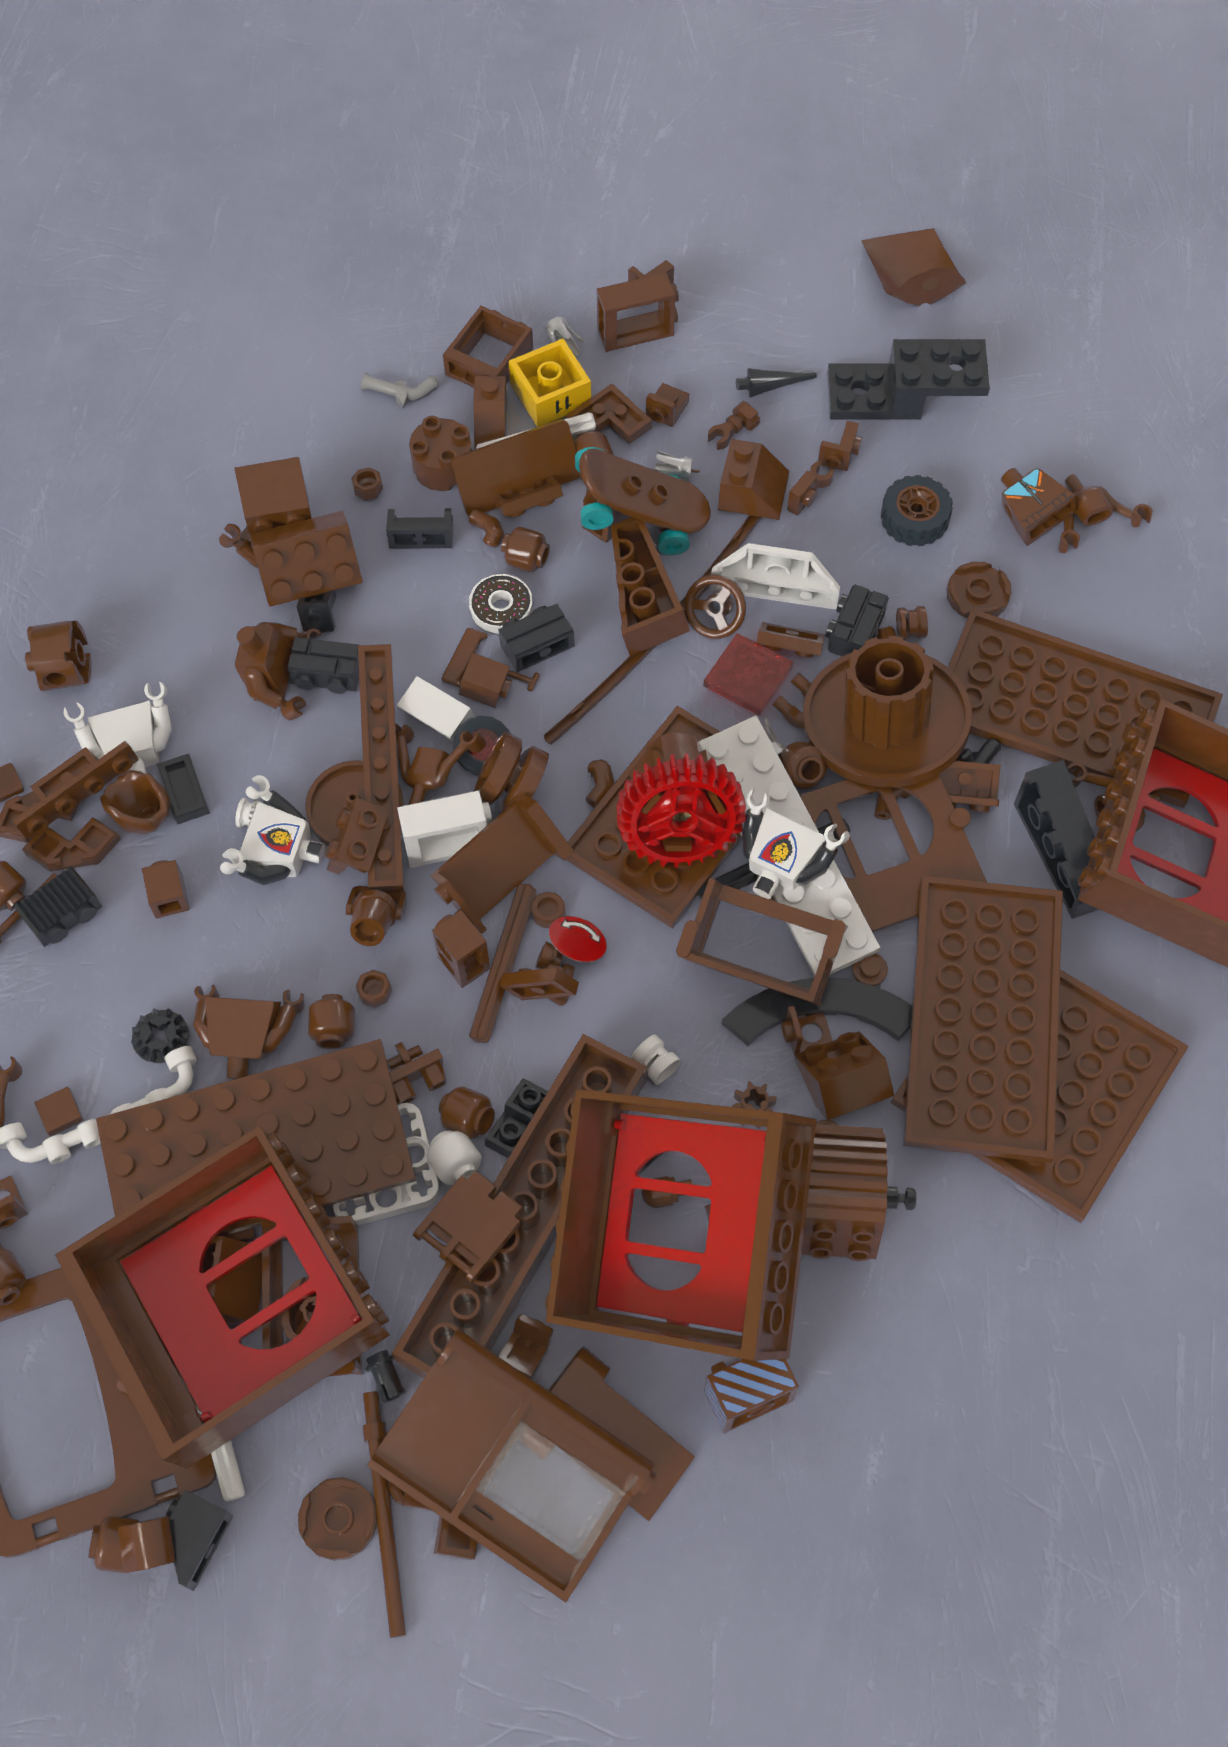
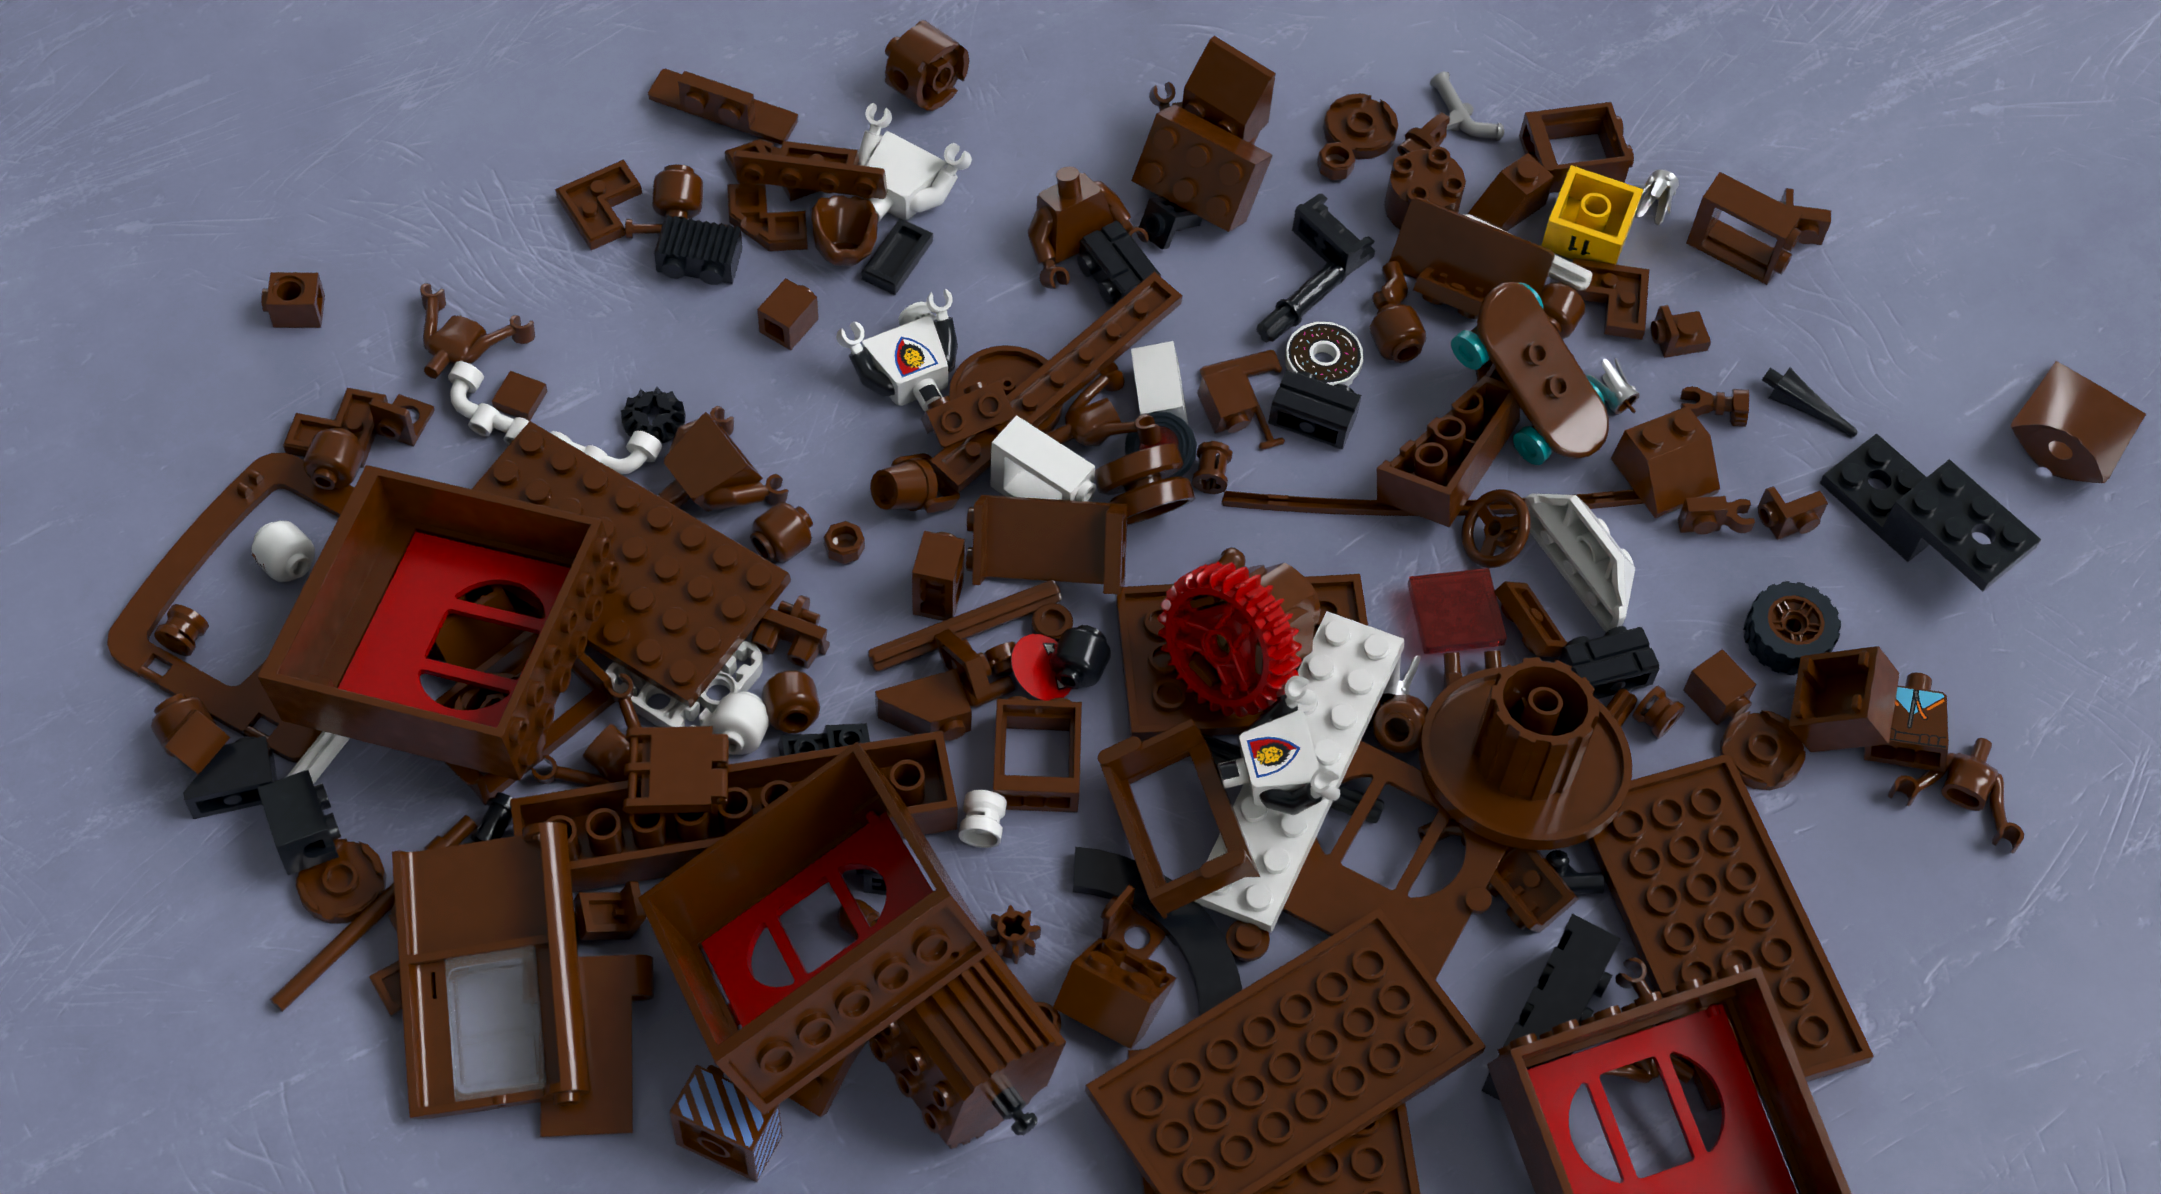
camera: 45 degrees right, 5 degrees down
(34, 1489) = (181, 630): none -> reddish brown wheel
(36, 1368) = (283, 551): none -> white head
(272, 1514) = (298, 822): none -> black brick
(352, 449) = (1361, 125): none -> reddish brown tile
(402, 426) = (1427, 137): none -> reddish brown piece
(402, 1256) = (606, 753): none -> reddish brown piece
(451, 595) = (1290, 310): none -> black axle
(523, 727) = (1212, 467): none -> reddish brown bush
(547, 1030) = (927, 706): none -> reddish brown slope
(592, 910) = (1080, 657): none -> black head
(664, 1014) = (1038, 792): none -> reddish brown window
(924, 578) = (1720, 688): none -> reddish brown brick
(994, 521) = (1844, 699): none -> reddish brown container

